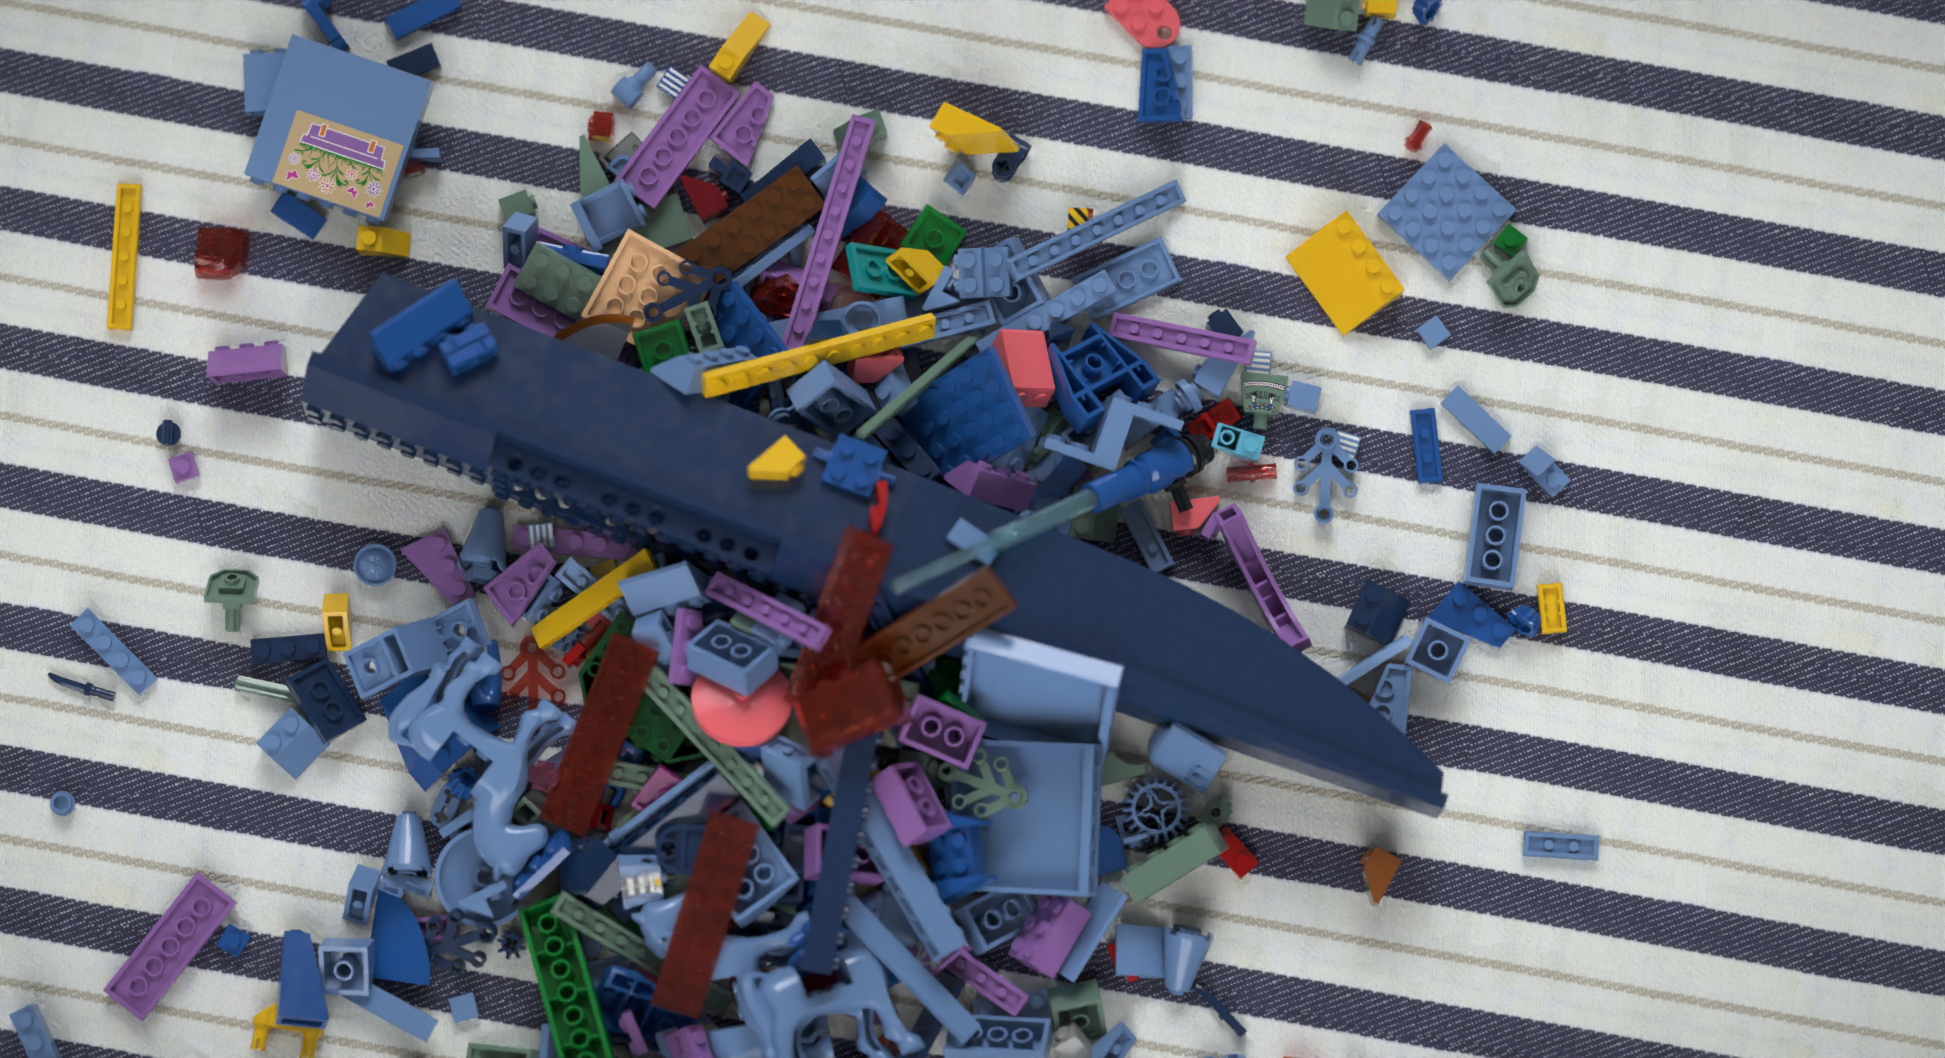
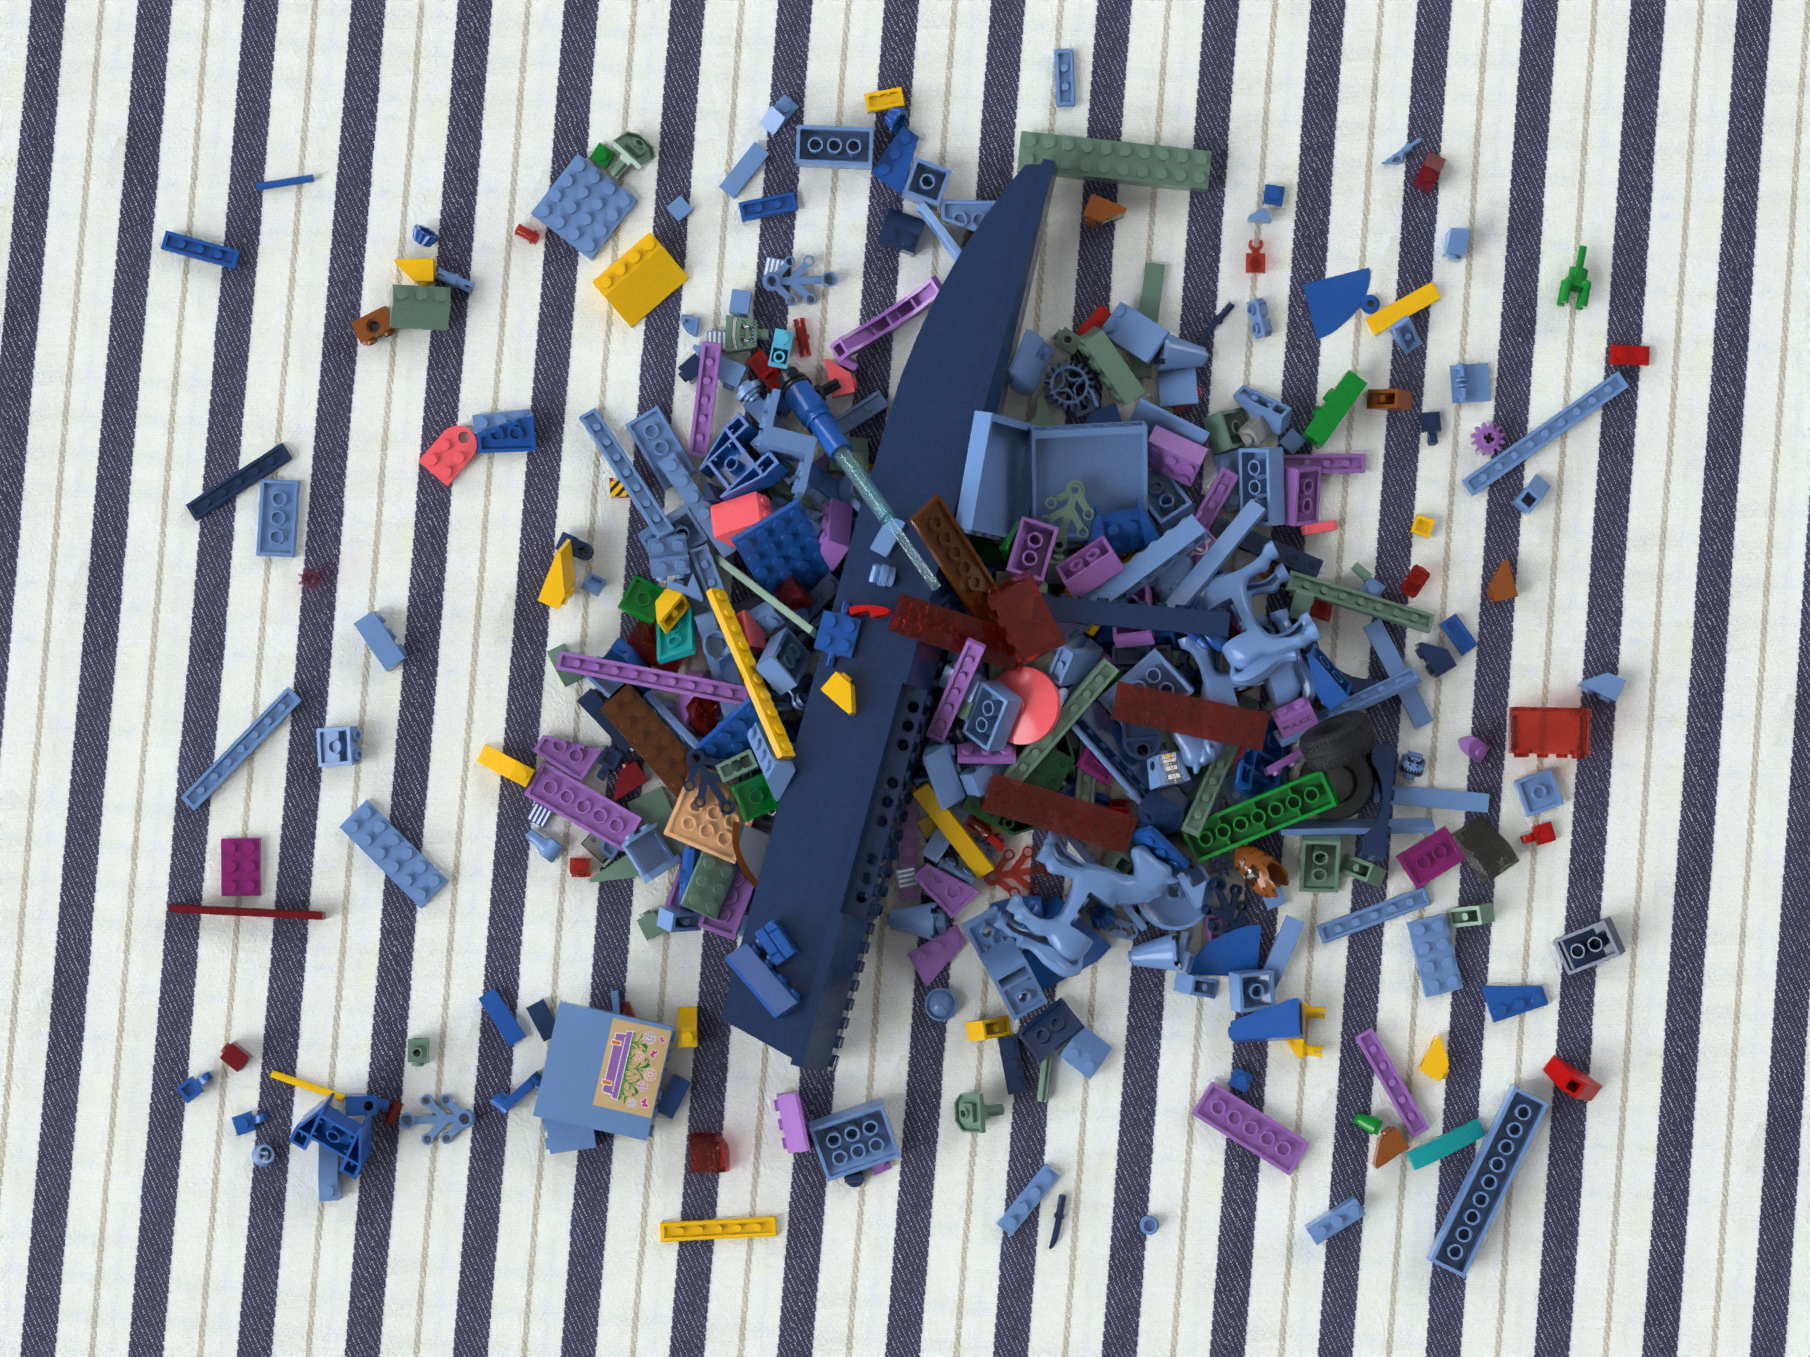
camera: 100 degrees left, 5 degrees up
(216, 436) = (854, 1139): none -> medium blue slope
(502, 991) = (1260, 870): none -> dark orange head
(543, 775) = (1094, 853): clear pink gear -> none
(917, 424) = (793, 594): none -> clear red slope
(923, 529) = (882, 575): none -> medium blue piece
(1215, 898) = (1134, 333): none -> medium blue slope
(1232, 922) = (1150, 308): none -> sand green tile
(1282, 332) = (690, 324): none -> medium blue tile
(1444, 900) = (1118, 161): none -> sand green brick

